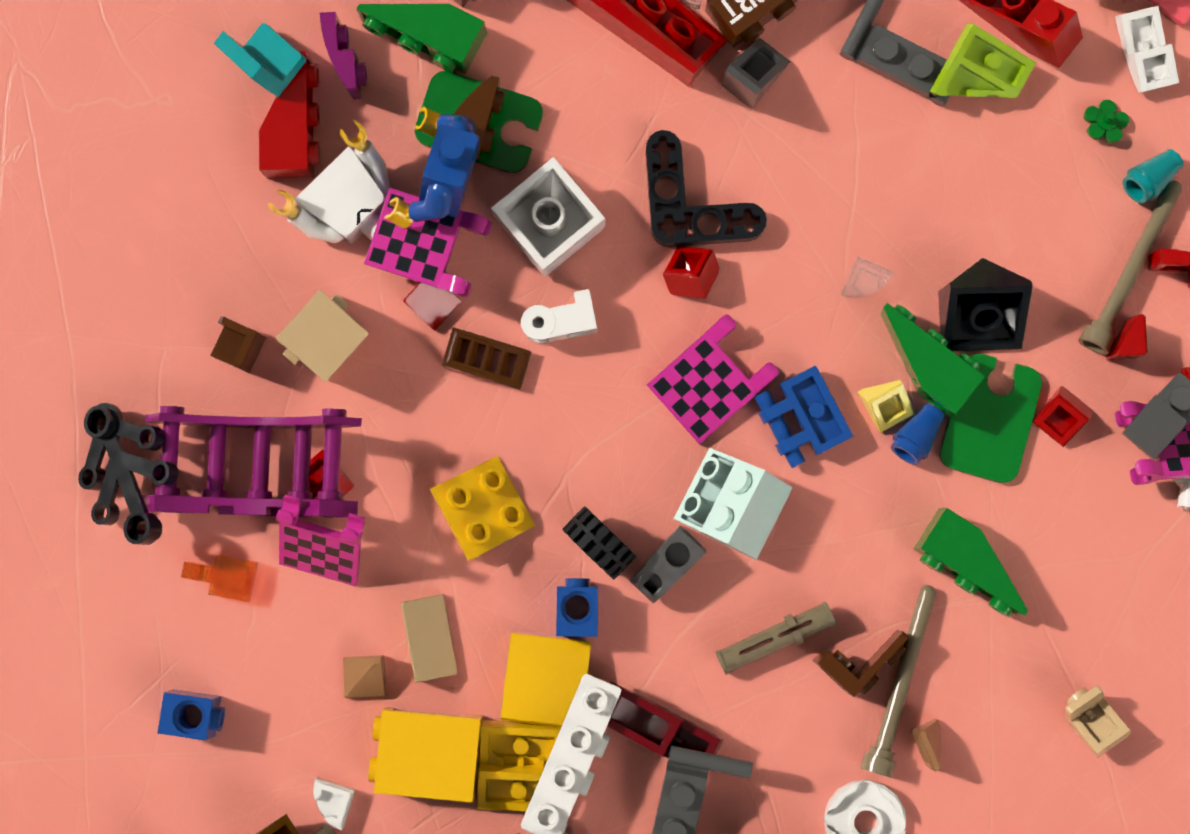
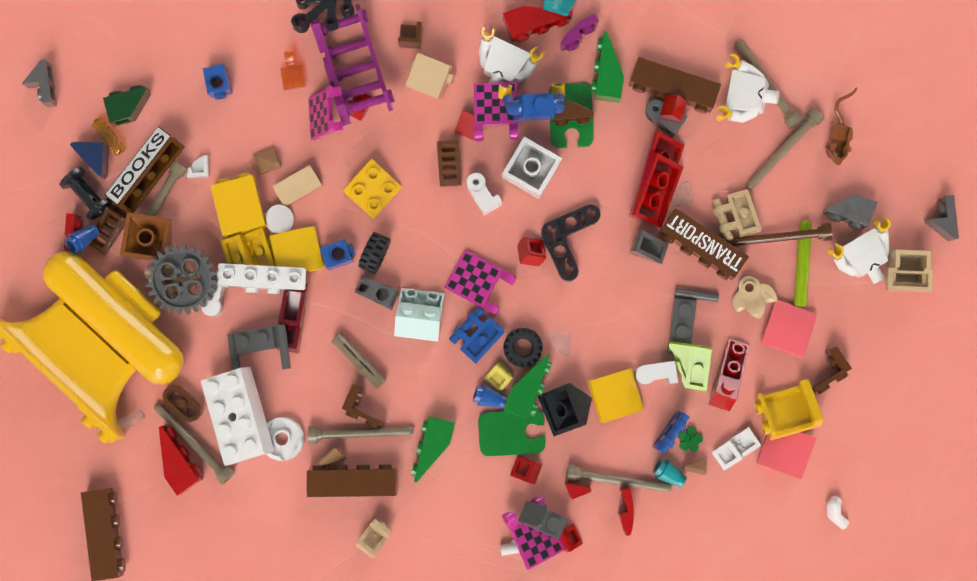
camera: 70 degrees right, 0 degrees up
(476, 690) = (279, 219): none -> white piece
(863, 323) = (532, 337): none -> black tyre
(973, 131) = (648, 373): none -> white leg
(985, 724) = (351, 482): none -> reddish brown brick
(991, 217) = (615, 395): none -> yellow slope
(1088, 145) = (671, 431): none -> blue plate
(1157, 126) = (698, 467): none -> medium nougat slope

